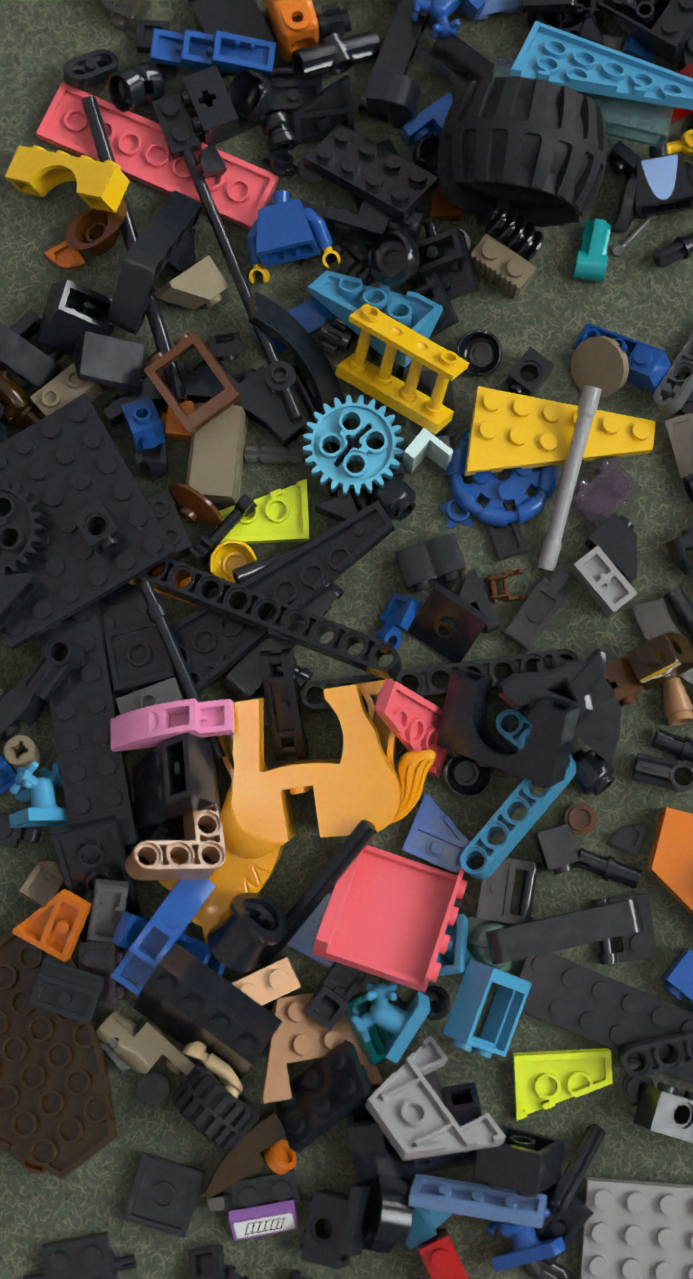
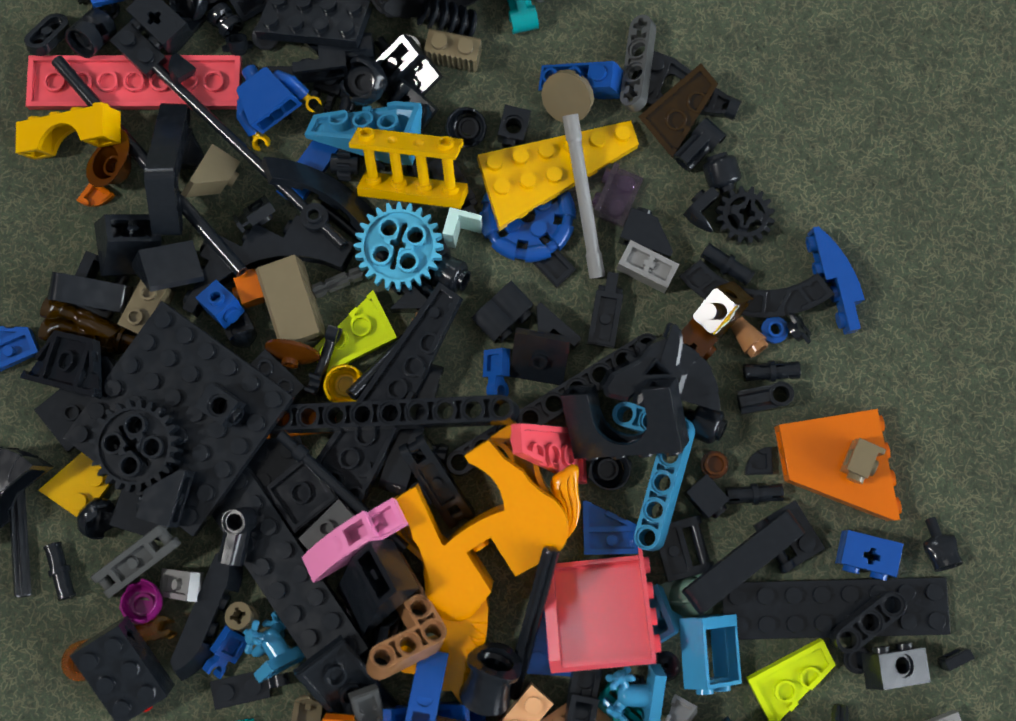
camera: 20 degrees left, 0 degrees up
(210, 409) = (269, 269): reddish brown window -> none
(443, 210) = (385, 25): reddish brown plate -> none
(454, 518) = (505, 269): blue plate -> none
(510, 598) = (558, 304): reddish brown piece -> none

